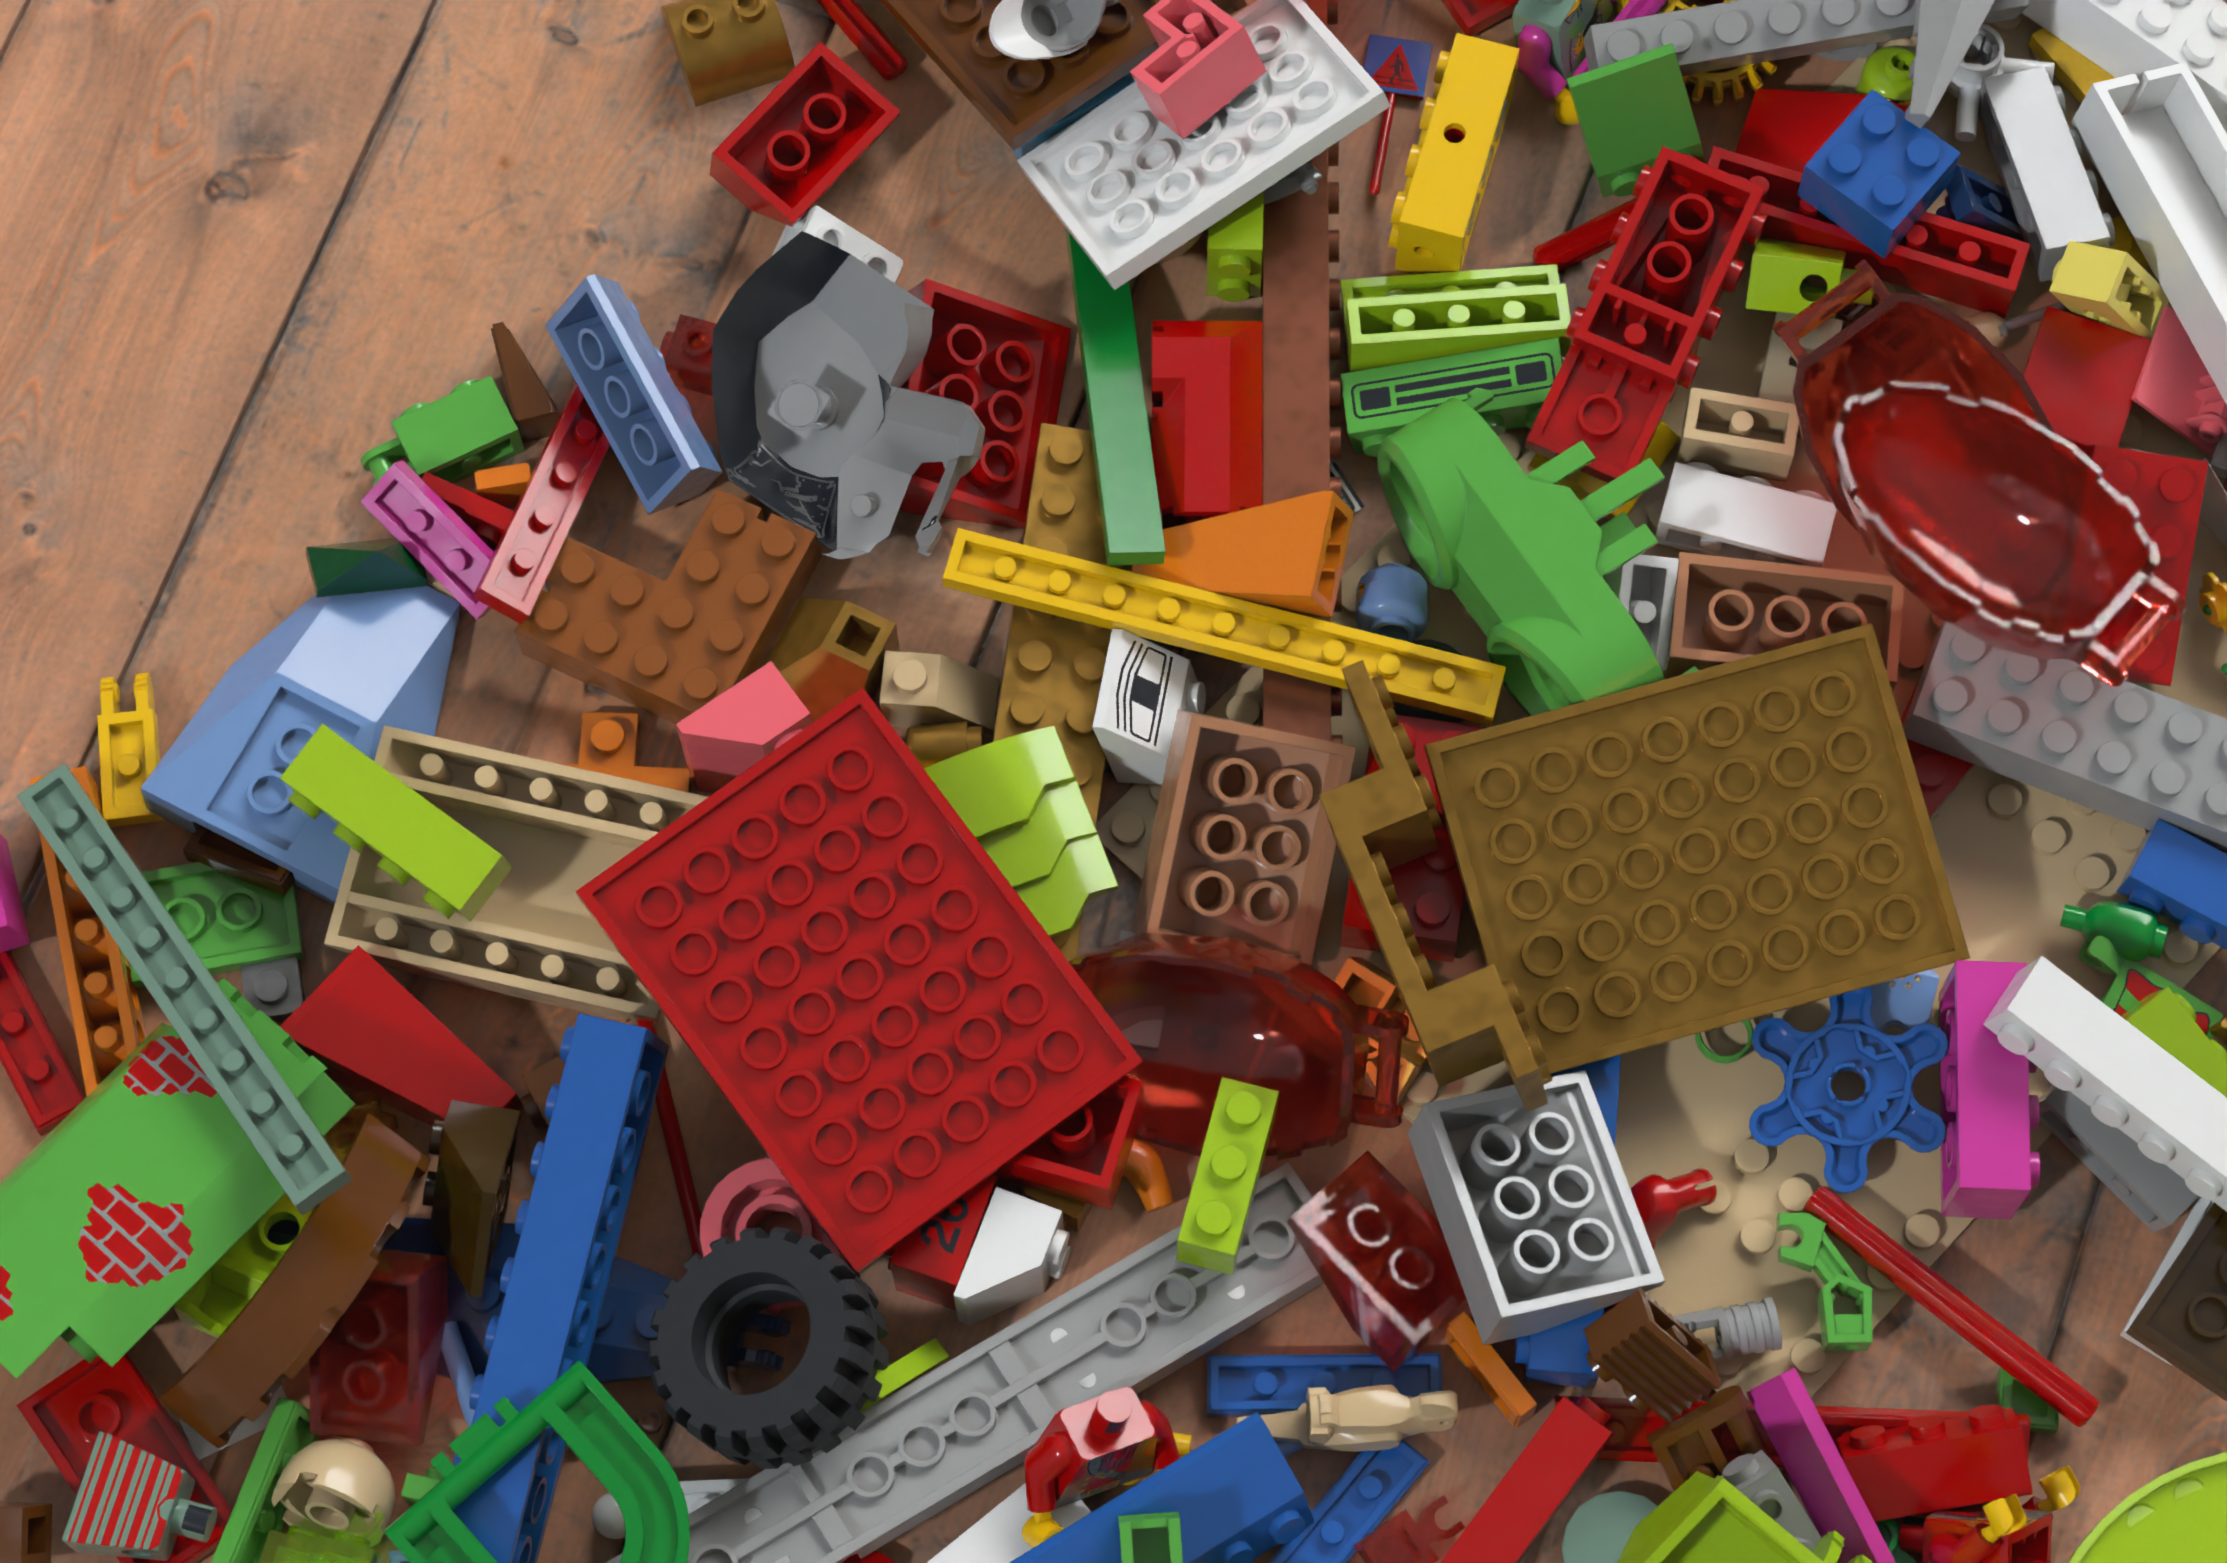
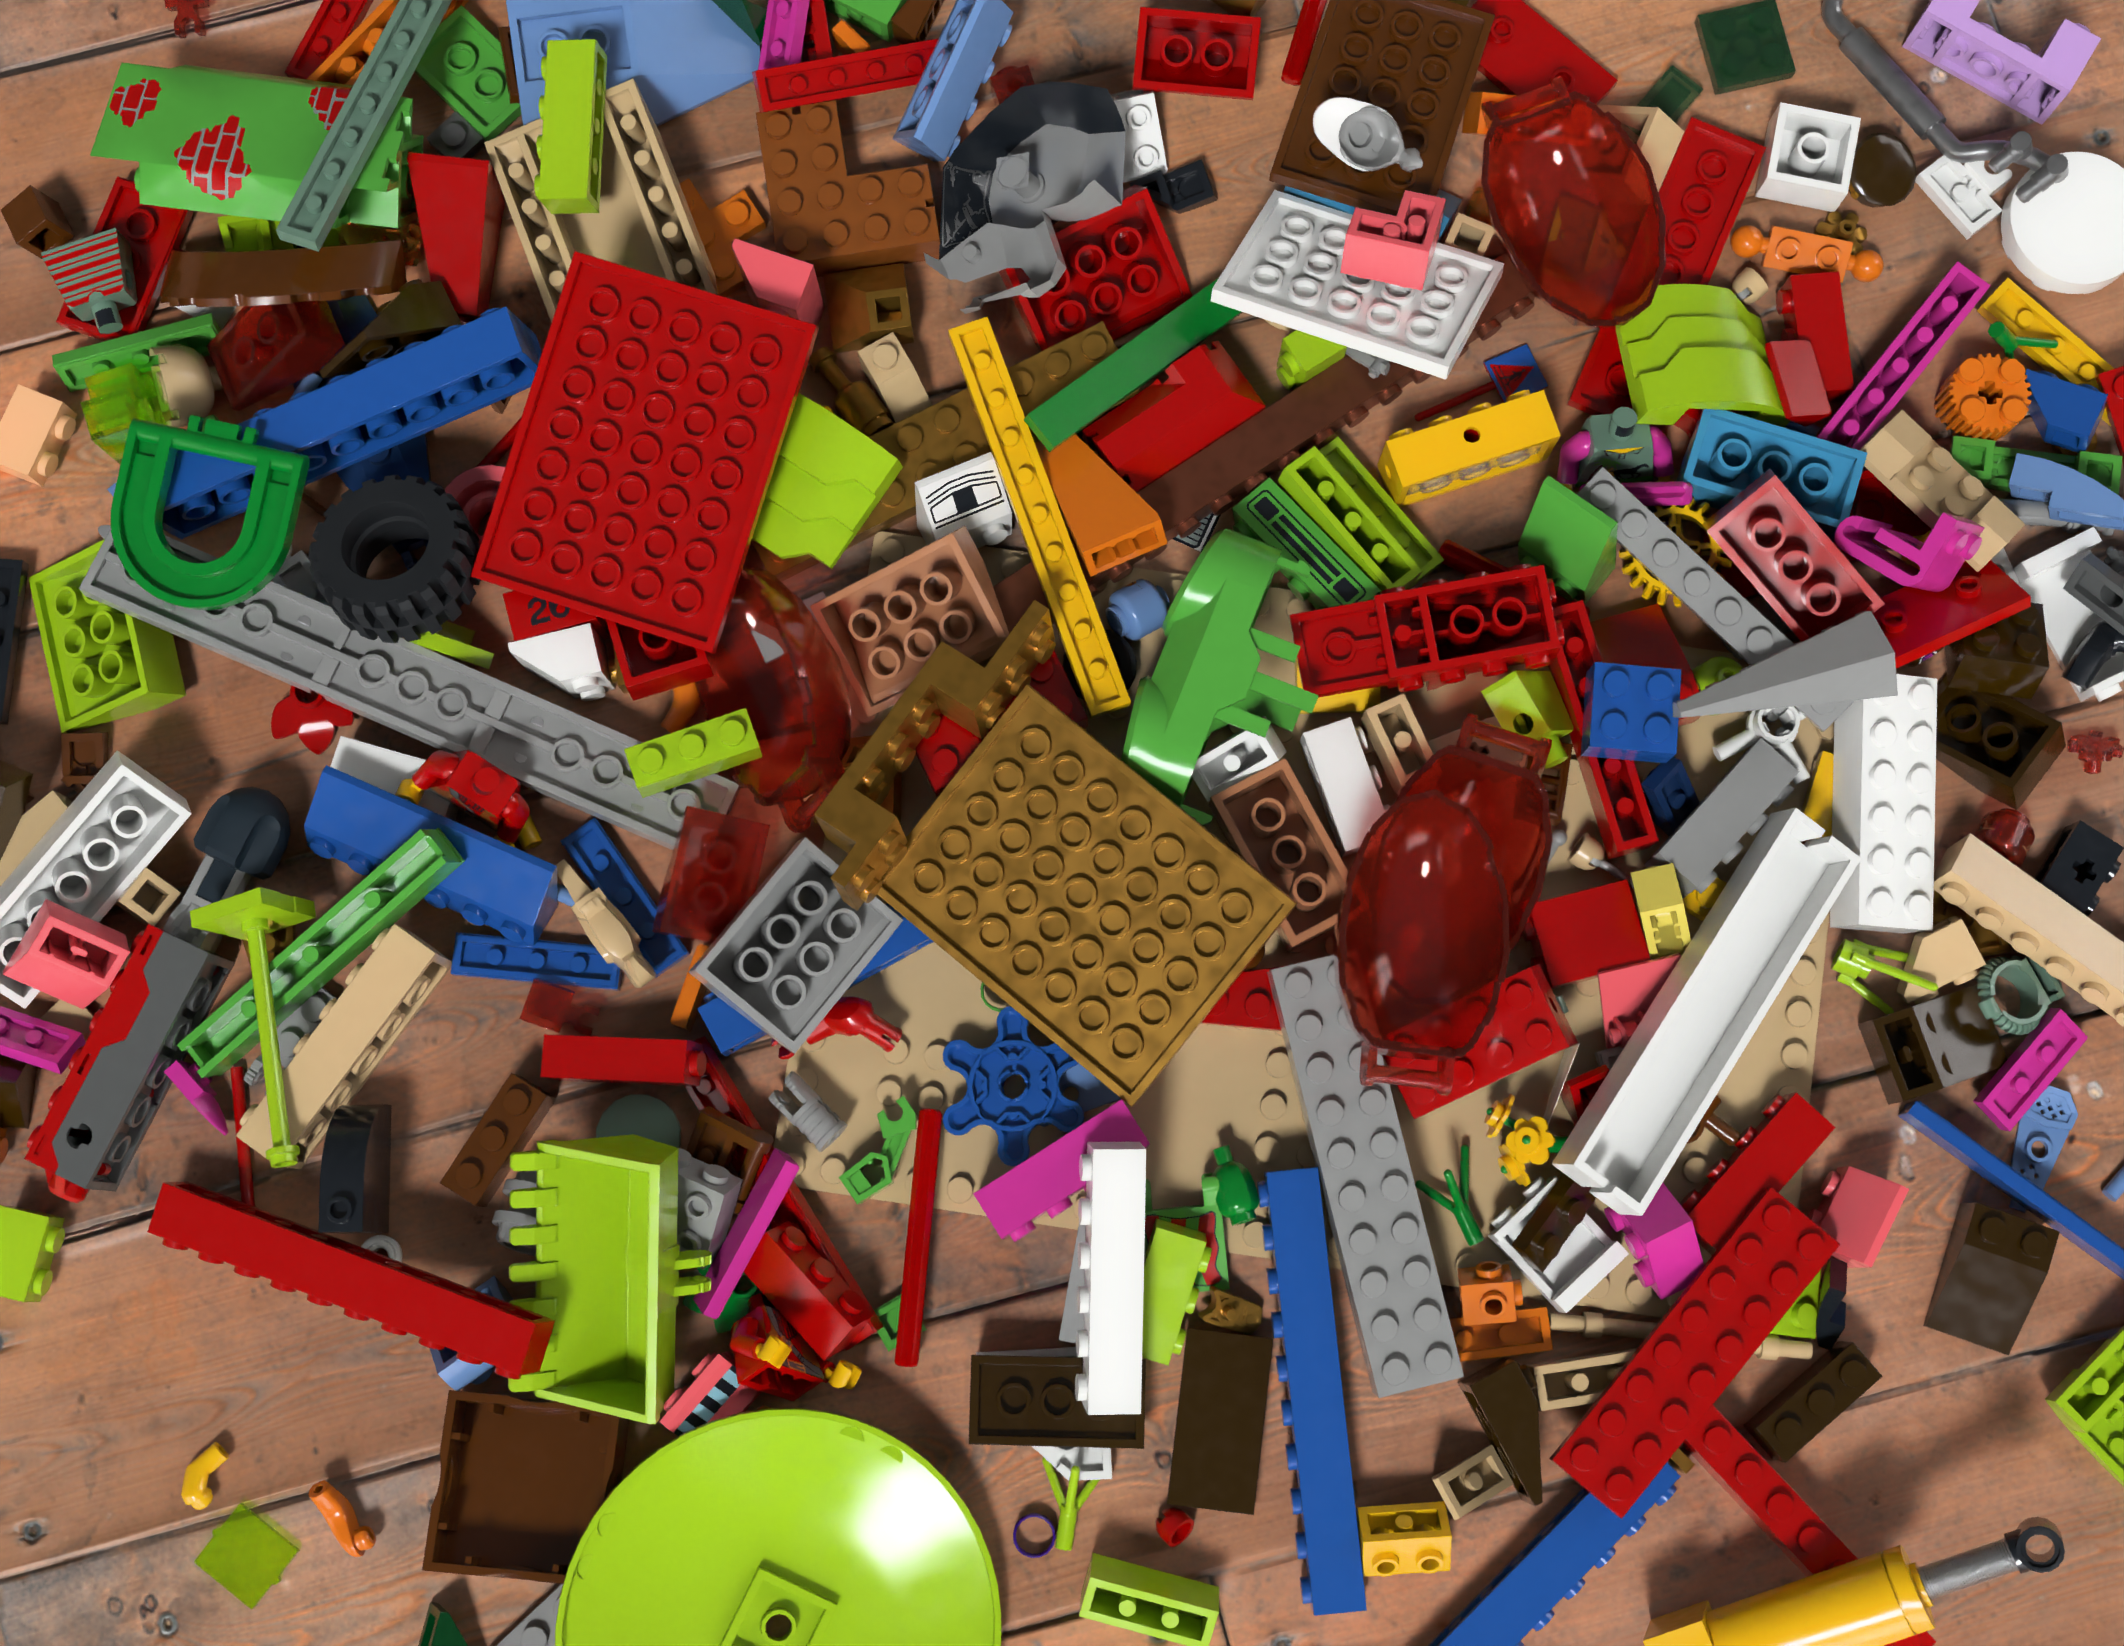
camera: 55 degrees right, 10 degrees up
(935, 253) = (1180, 189): none -> black slope
(1651, 1357) = (749, 1076): reddish brown brick -> none

